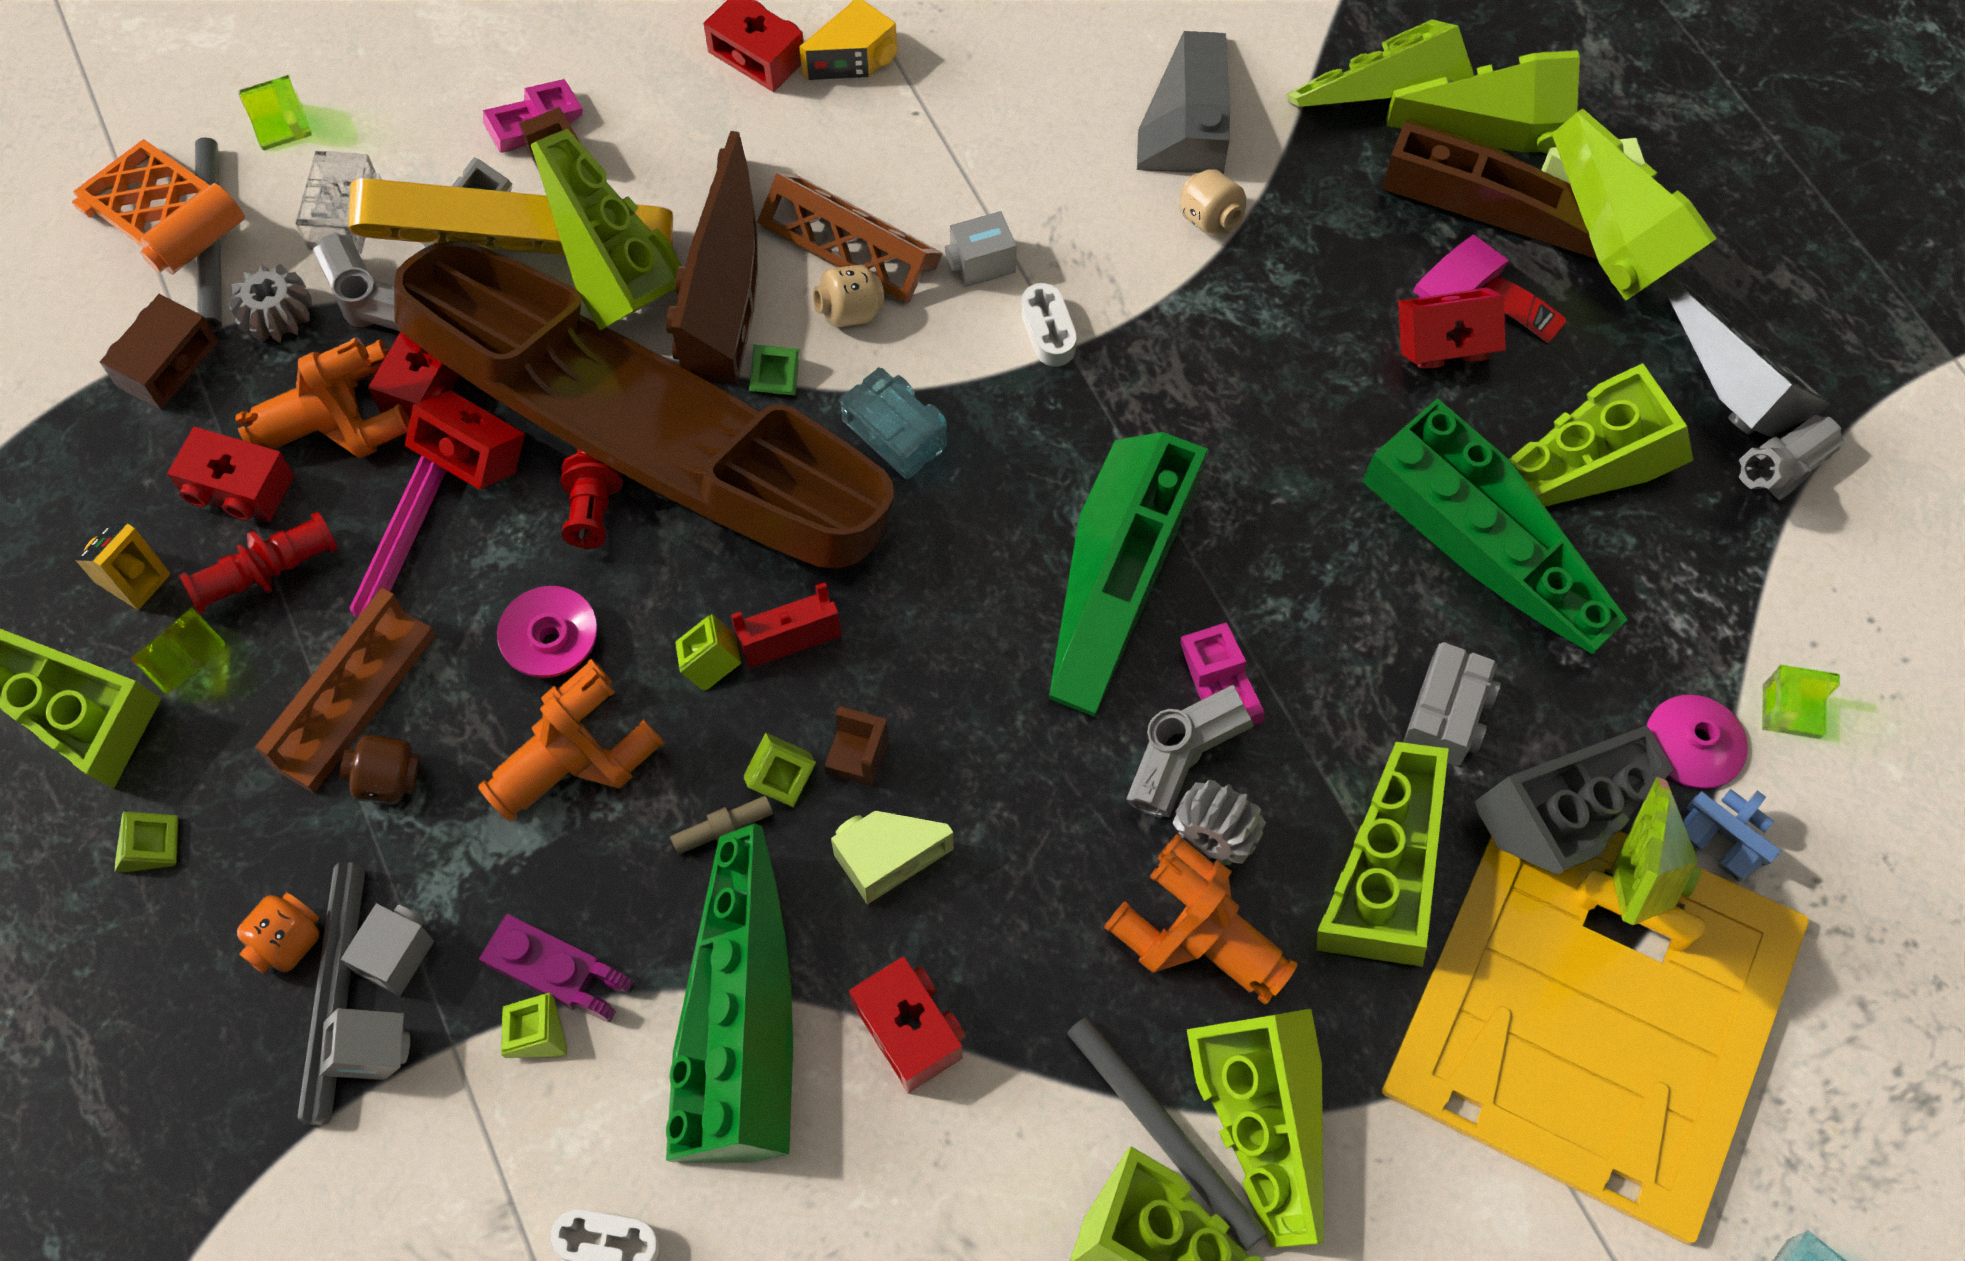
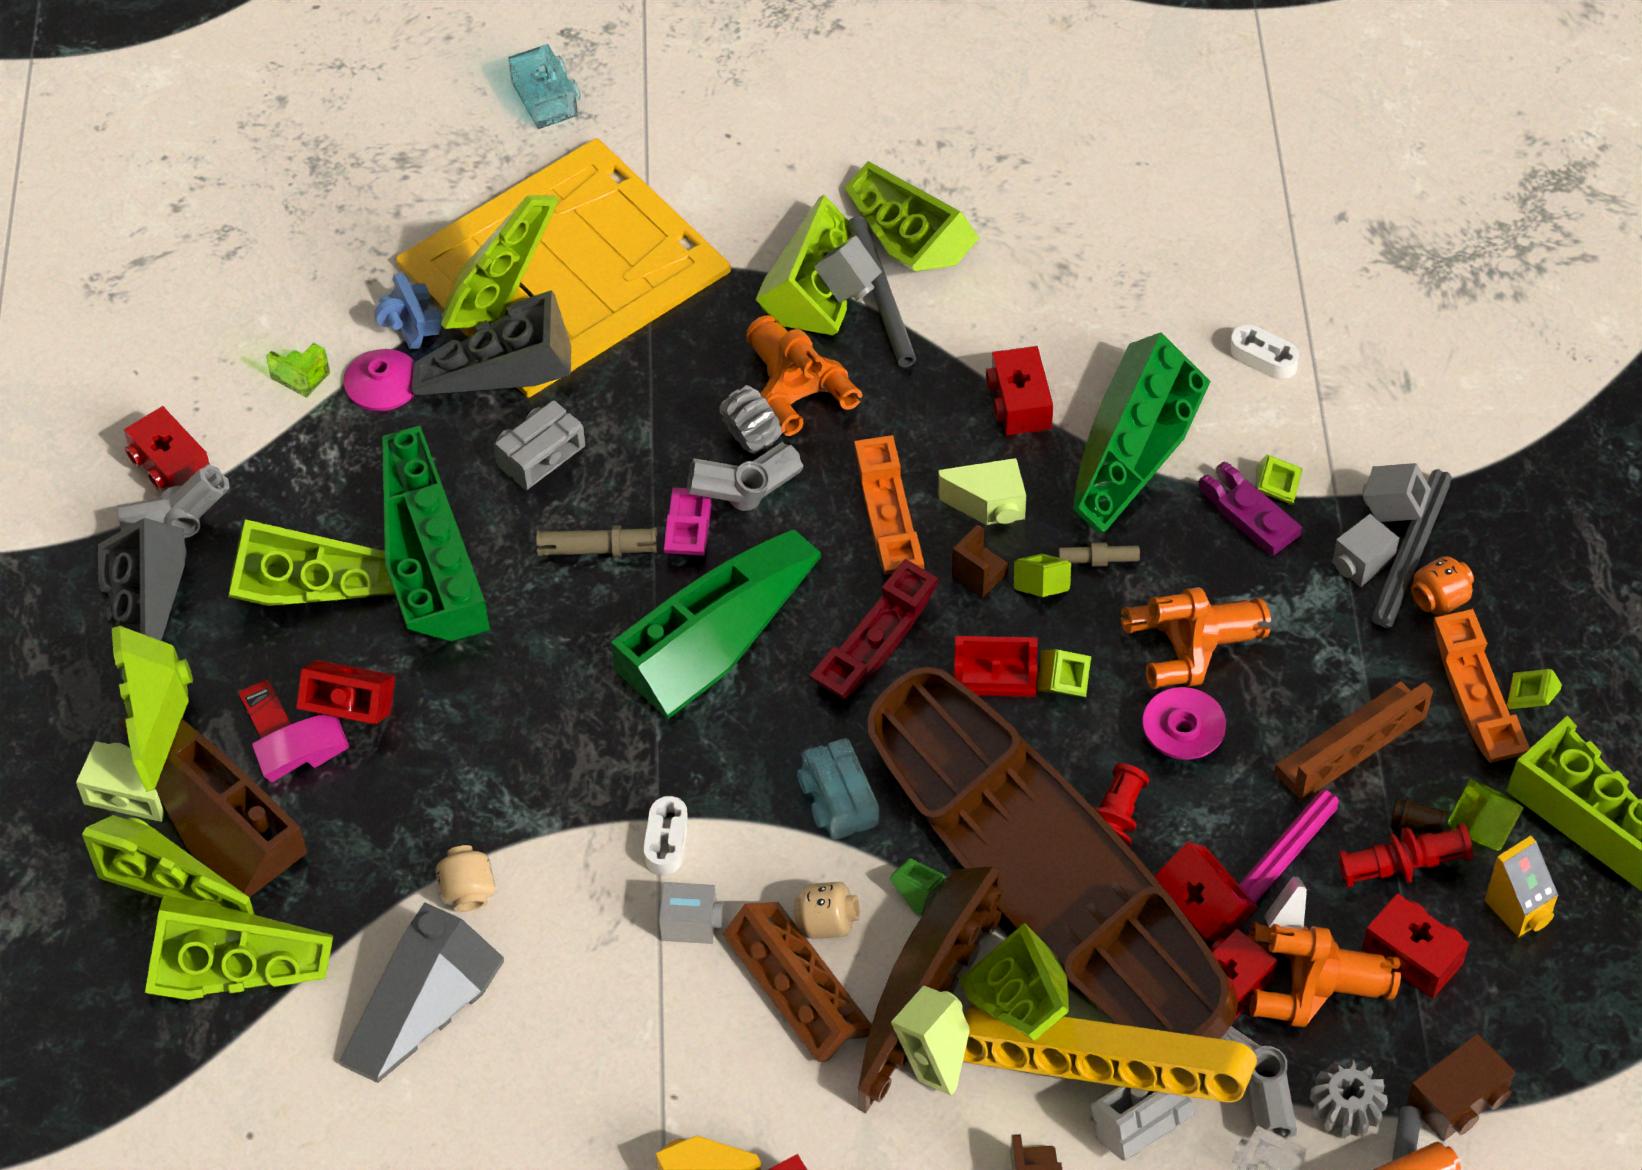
camera: 155 degrees left, 10 degrees down
(207, 803) = (1476, 688): none -> orange slope
(256, 625) = (1418, 816): none -> dark brown pin
(371, 440) = (1289, 906): none -> white slope
(380, 769) = (1341, 667): reddish brown head -> none
(686, 181) = (934, 1037): none -> yellowish green slope
(940, 611) = (878, 633): none -> dark red slope
(994, 781) = (887, 503): none -> orange slope
(1217, 1114) = (848, 270): none -> light grey brick
(1290, 618) = (597, 541): none -> dark tan pin
(1389, 878) = (647, 361): lime wedge -> none
(1849, 529) = (164, 449): none -> red brick

